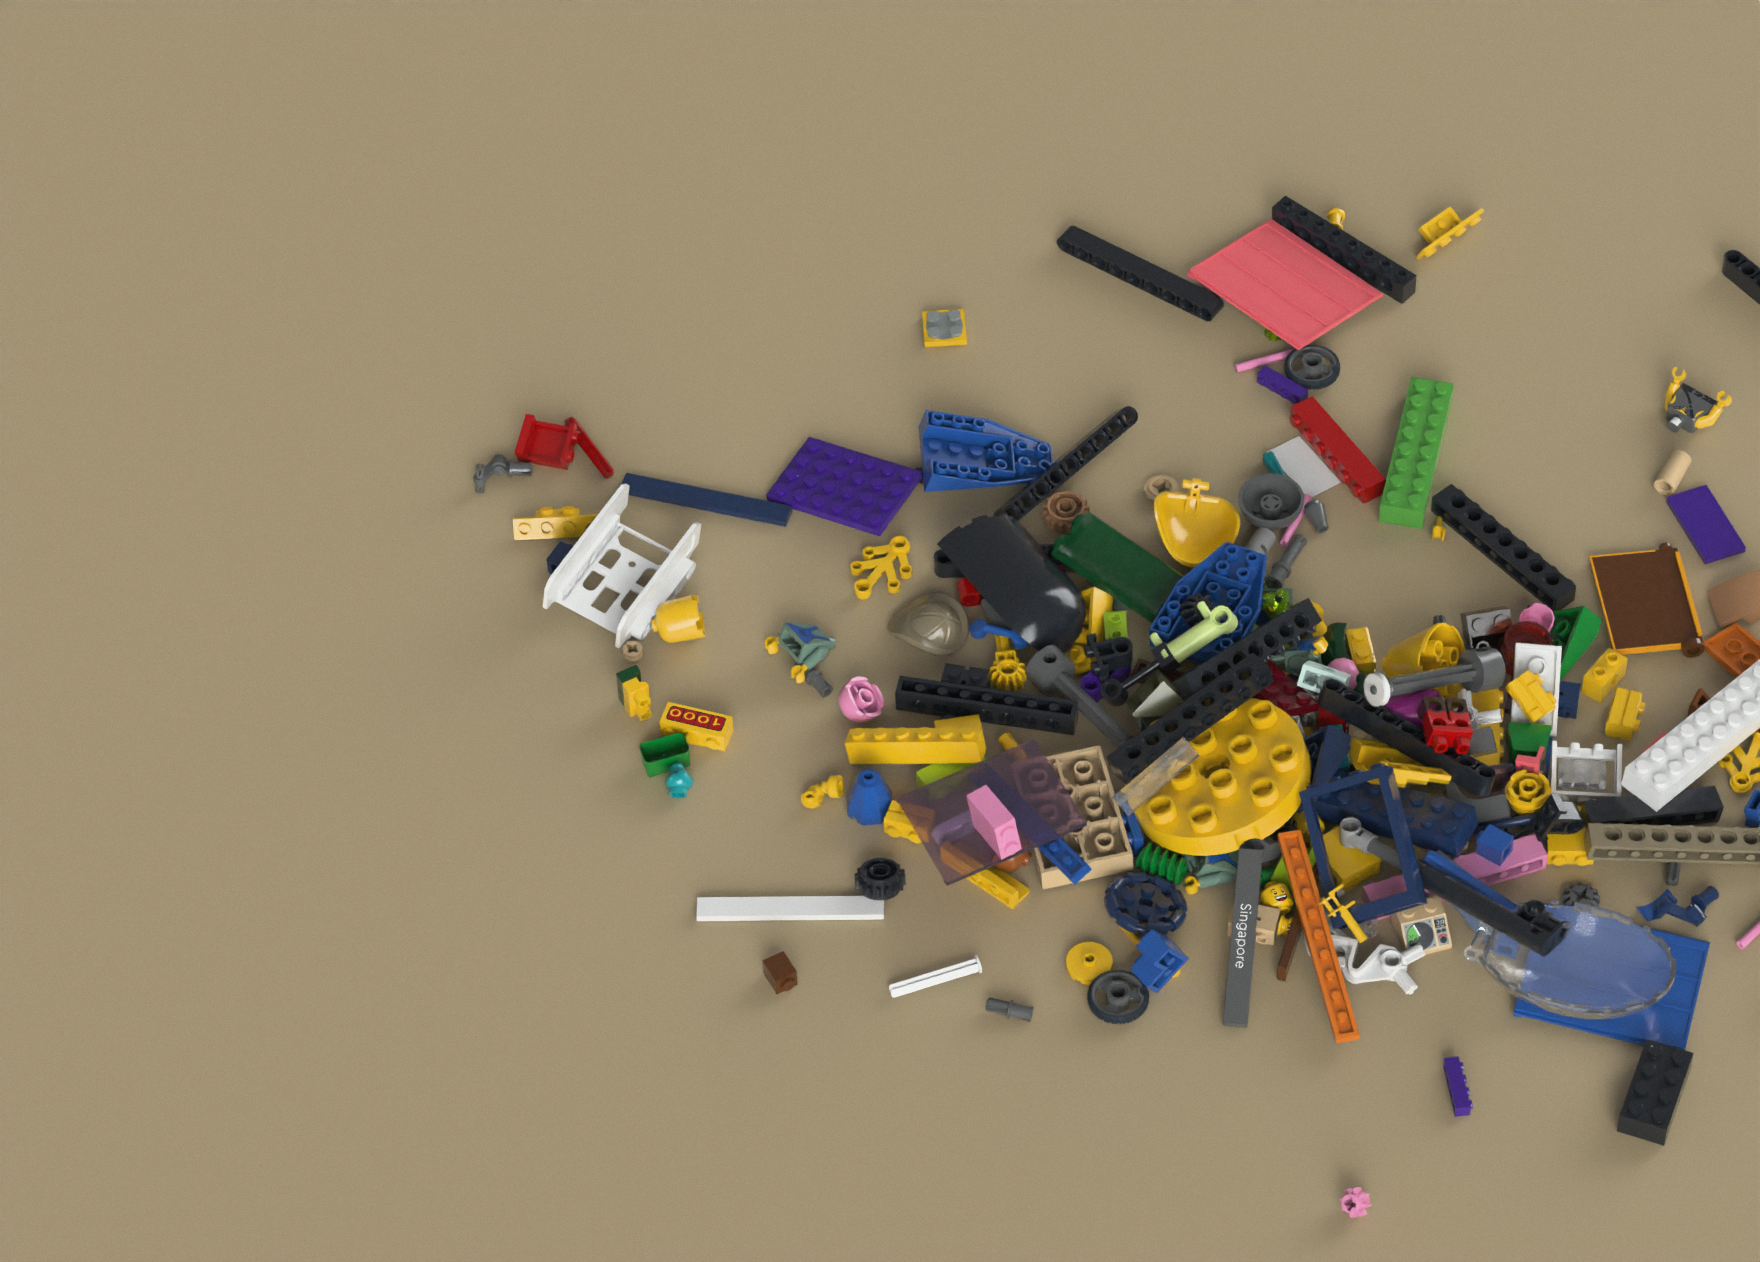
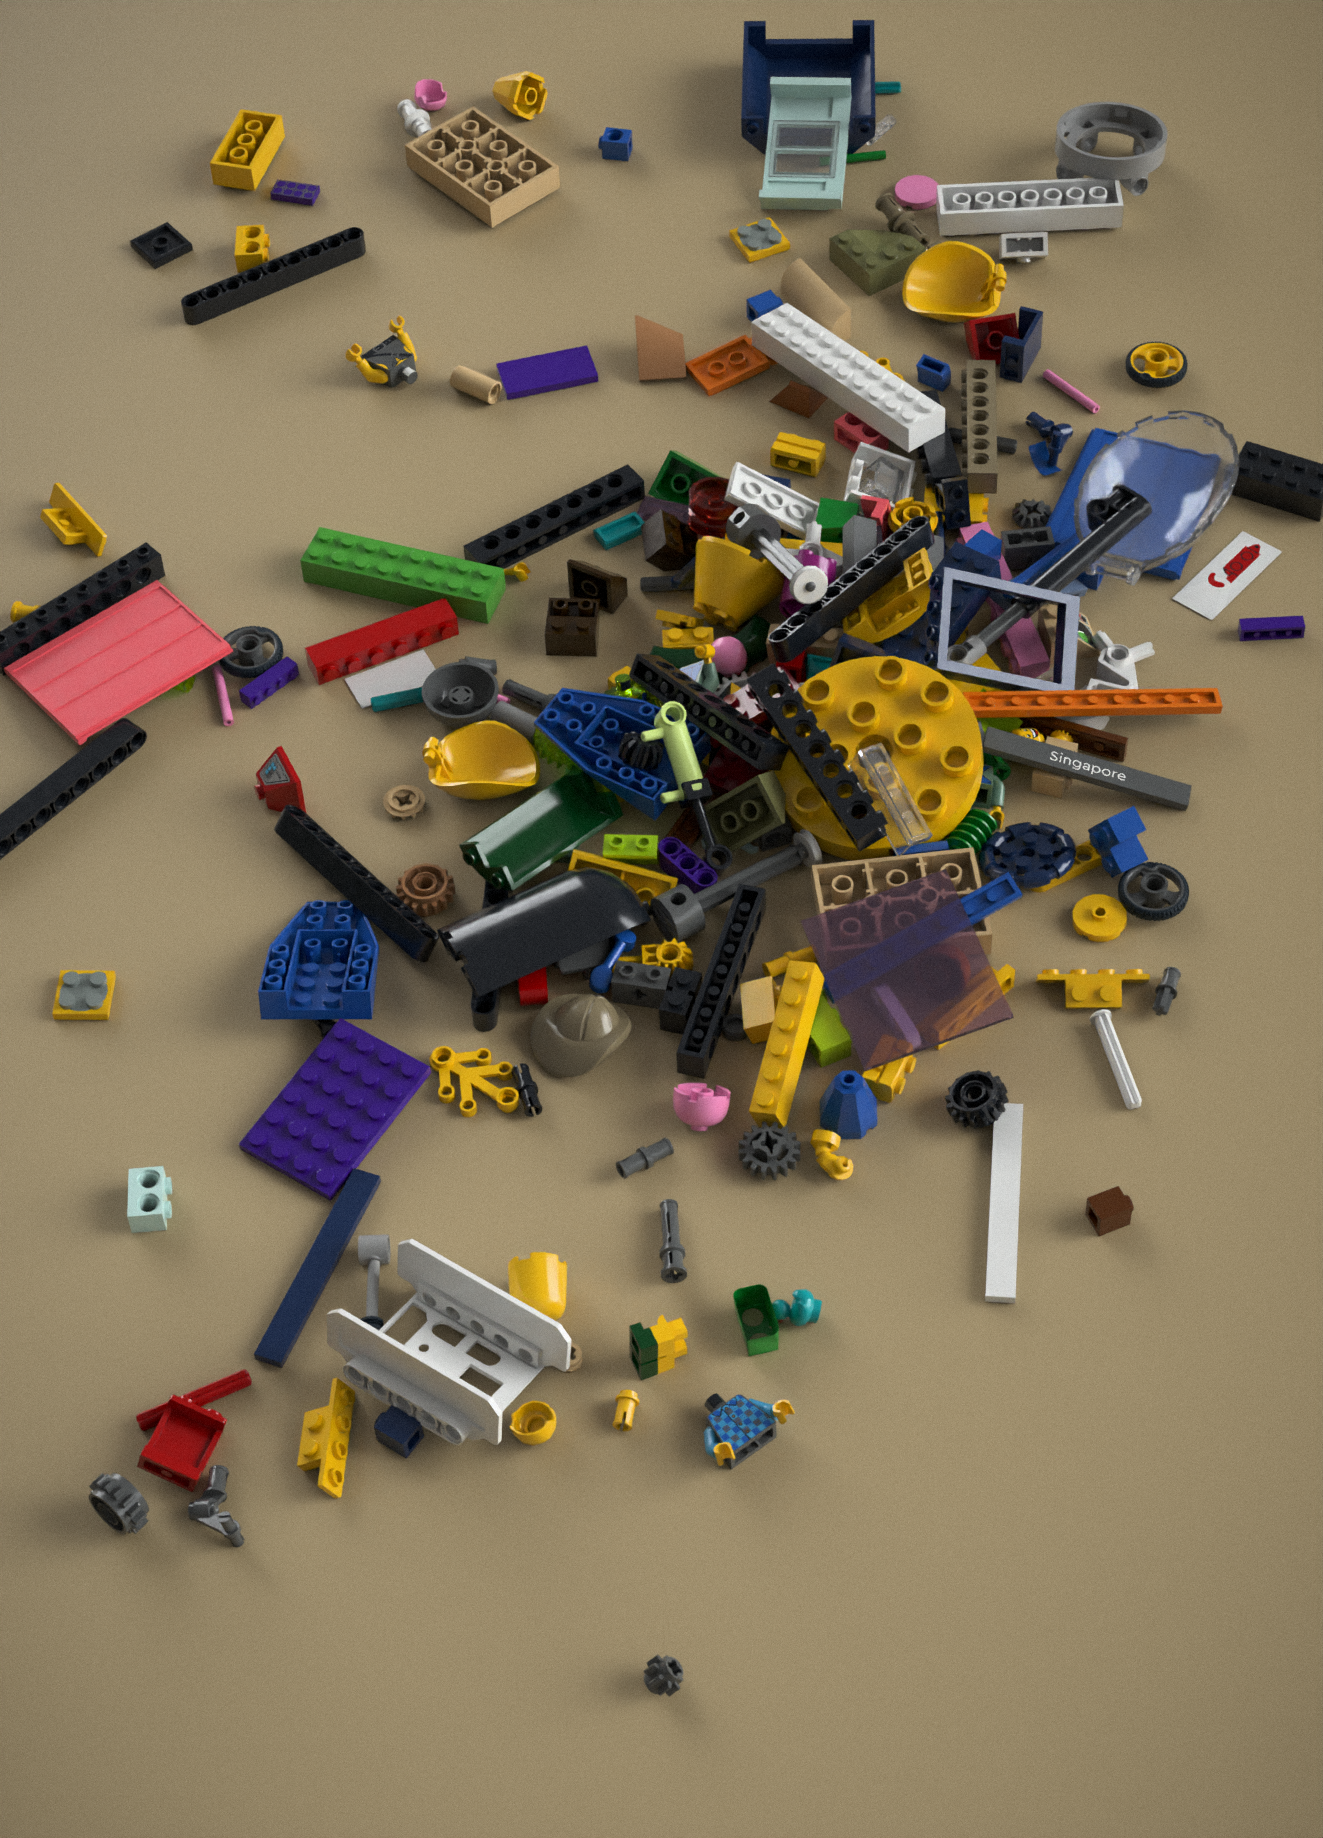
camera: 85 degrees left, 0 degrees up
(376, 730) = (663, 1675): none -> dark grey gear
(493, 413) = (118, 1503): none -> dark grey gear
(569, 750) = (741, 1427): none -> torso
(571, 634) = (533, 1423): none -> yellow hair
(587, 687) = (626, 1404): none -> yellow pin
(697, 725) = (711, 1285): yellow brick -> none
(715, 525) = (373, 1251): none -> light grey piece
(726, 701) = (672, 1251): none -> dark grey pin
(754, 392) = (145, 1199): none -> light aqua brick
(805, 645) = (599, 1156): sand green torso -> none
(823, 752) = (756, 1156): none -> dark grey gear
(872, 599) = (527, 1090): none -> black pin
(980, 650) = (639, 984): none -> dark grey brick
(994, 822) = (950, 945): bright pink brick -> none
(1008, 957) = (1093, 990): none -> yellow bracket
(1108, 655) = (677, 850): black pin -> none
(1161, 407) = (279, 783): none -> red slope
(1314, 674) = (749, 656): light aqua brick -> none
(1345, 914) = (1066, 674): yellow piece -> none
(1371, 571) = (572, 627): none -> dark brown slope
(1383, 636) = (676, 620): none -> yellow plate
(1425, 581) = (593, 582): none -> dark brown slope
(1444, 725) = (857, 541): red hips -> none
(1503, 595) = (619, 531): none -> teal tile
(1520, 882) = (1026, 546): none -> dark grey brick
(1529, 1056) = (1227, 575): none -> white sticker
(1531, 697) = (791, 500): yellow brick -> none
(1538, 614) = (672, 497): bright pink hair -> none
(1604, 675) = (742, 451): yellow brick -> none
(1647, 602) = (646, 422): reddish brown door -> none

